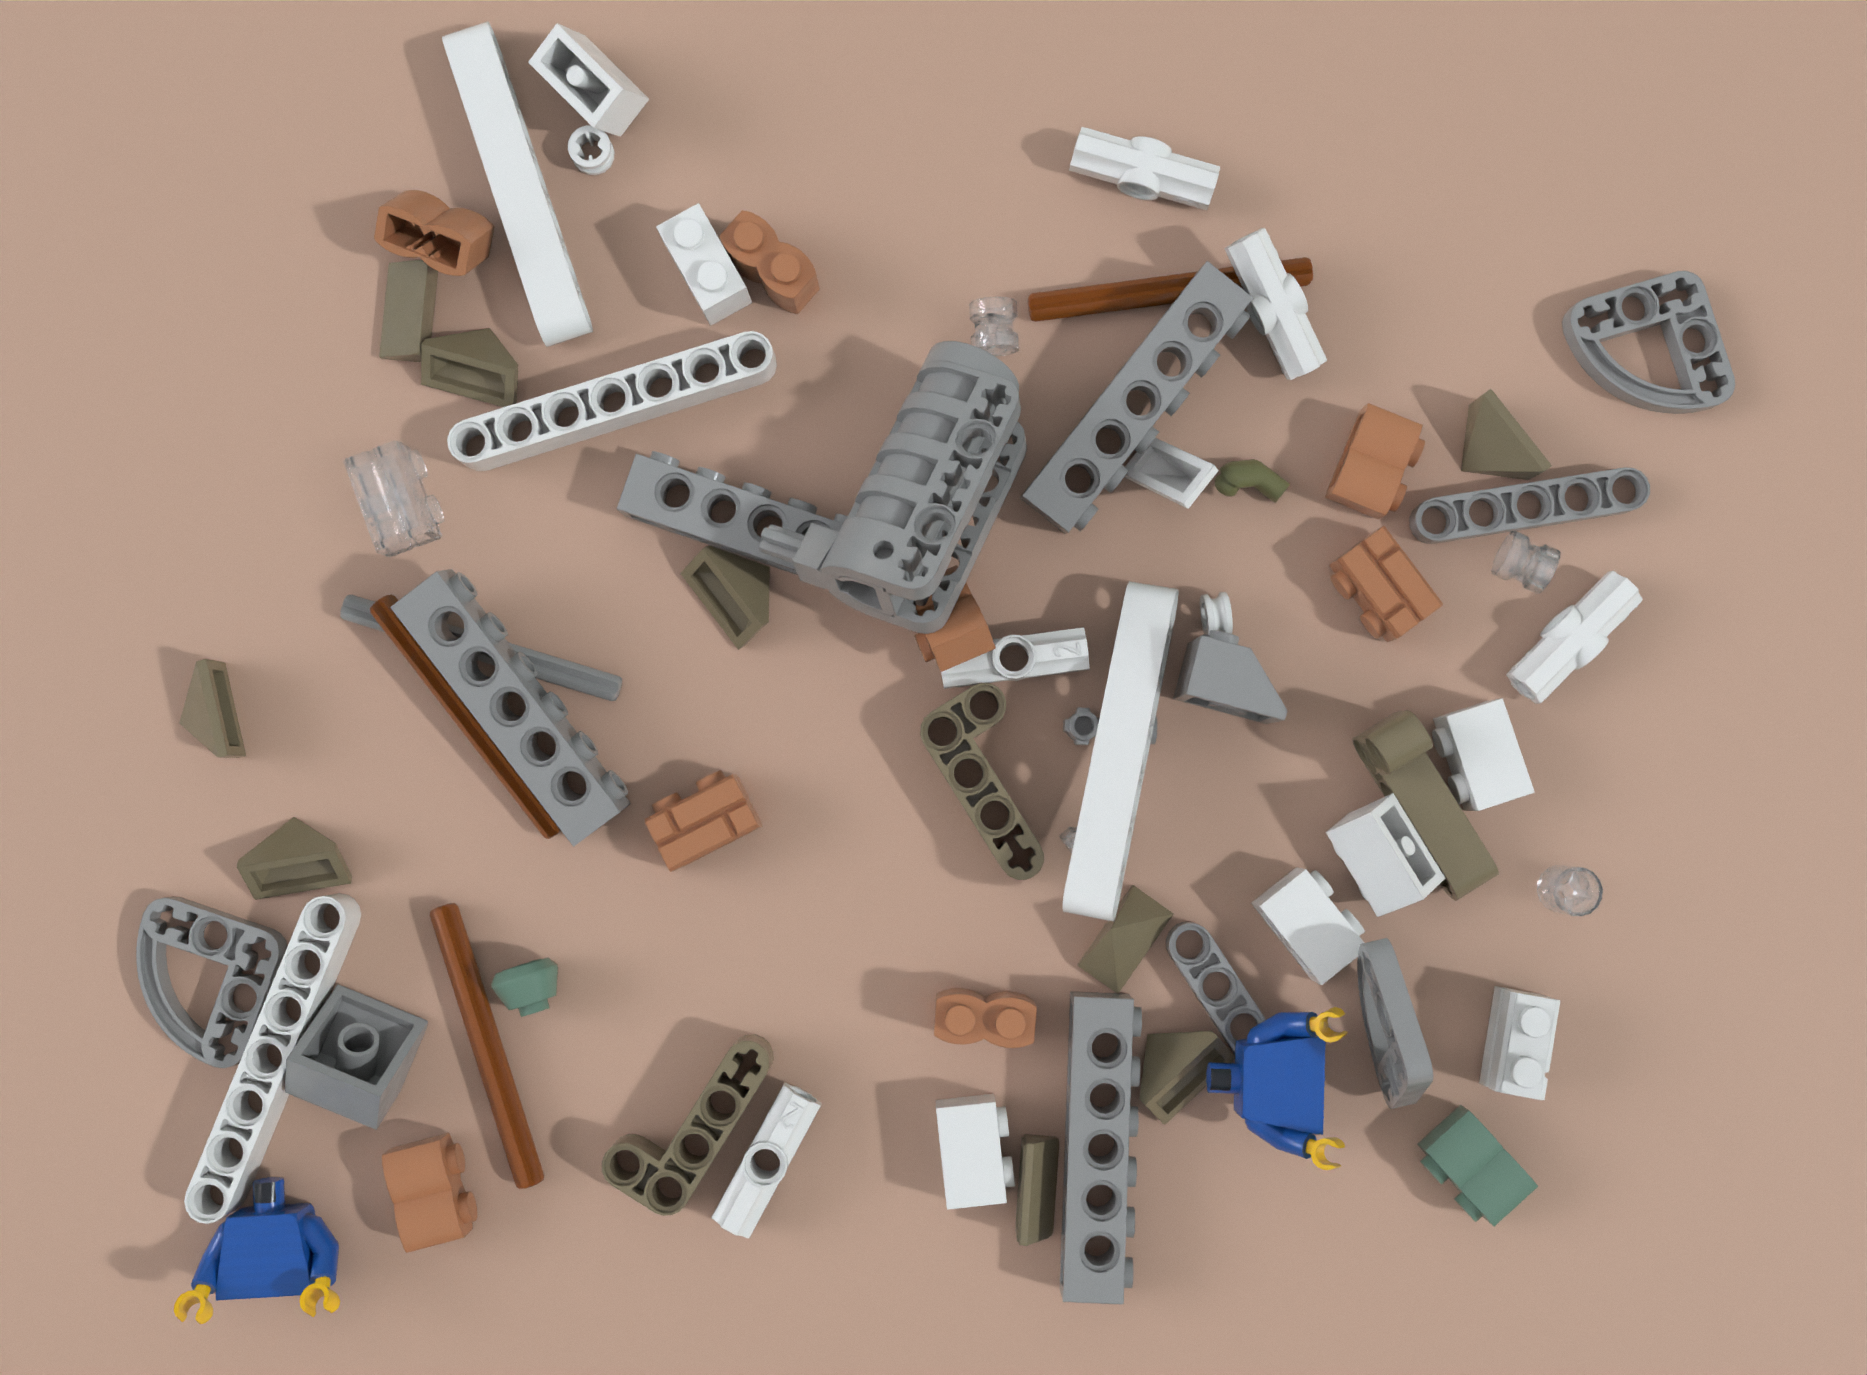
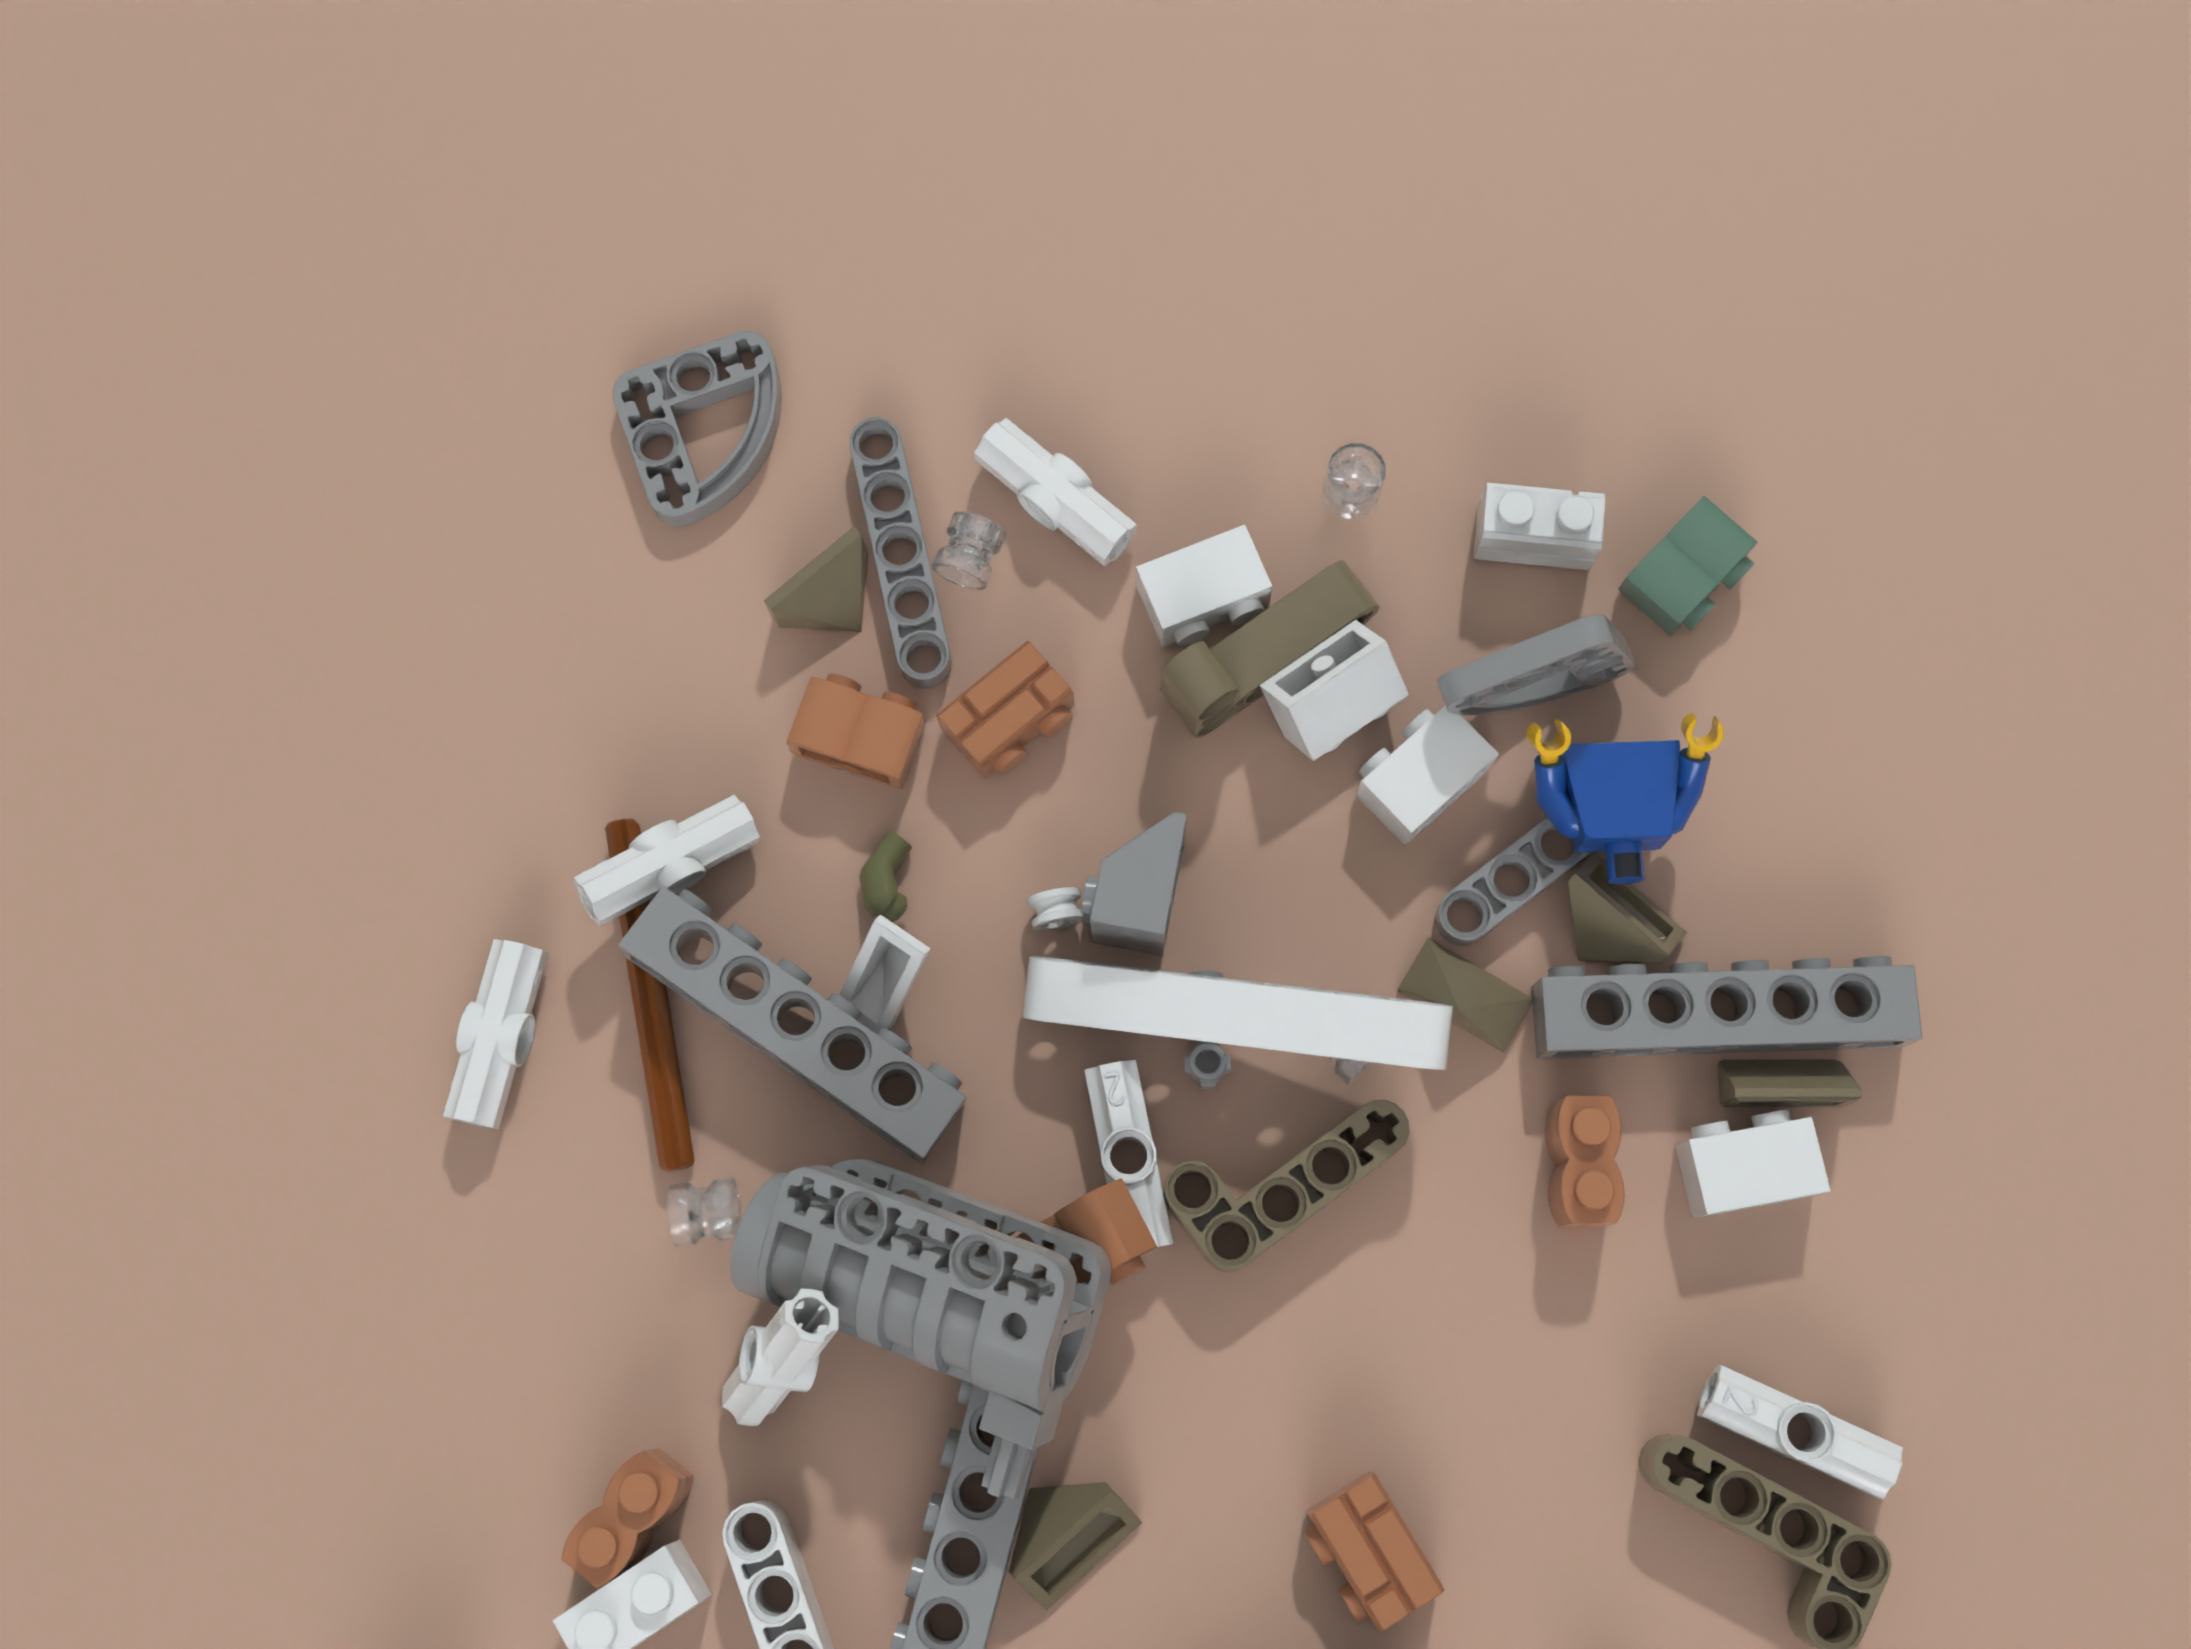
camera: 90 degrees left, 10 degrees down
(877, 377) = (780, 1357): none -> white piece

